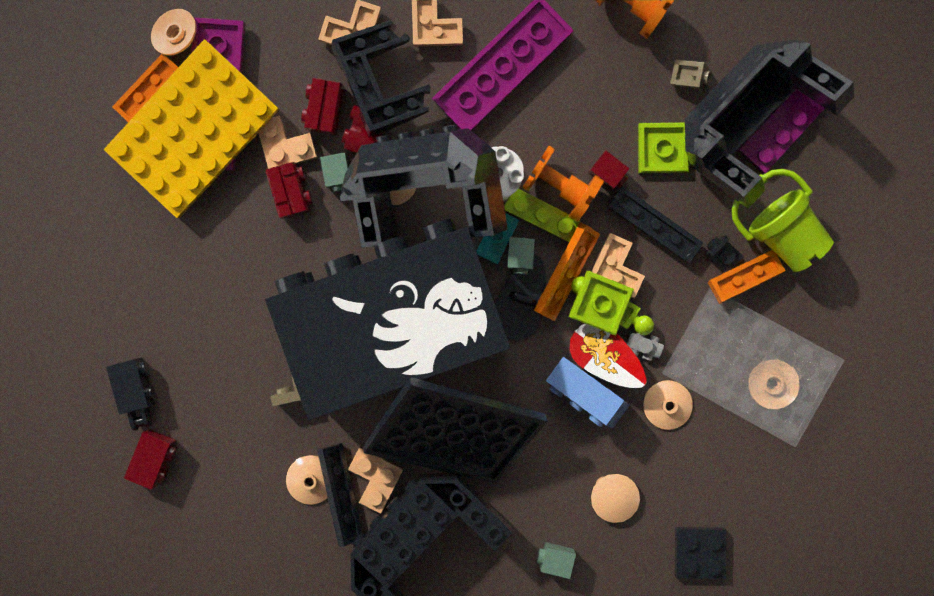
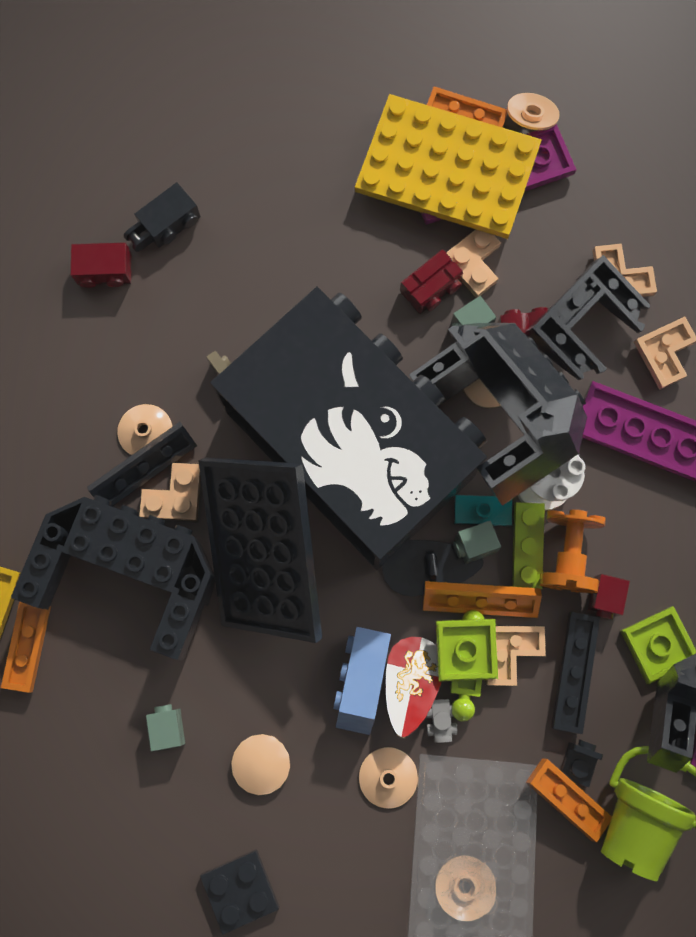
camera: 65 degrees right, 10 degrees down
(323, 106) = (531, 279): dark red brick -> none

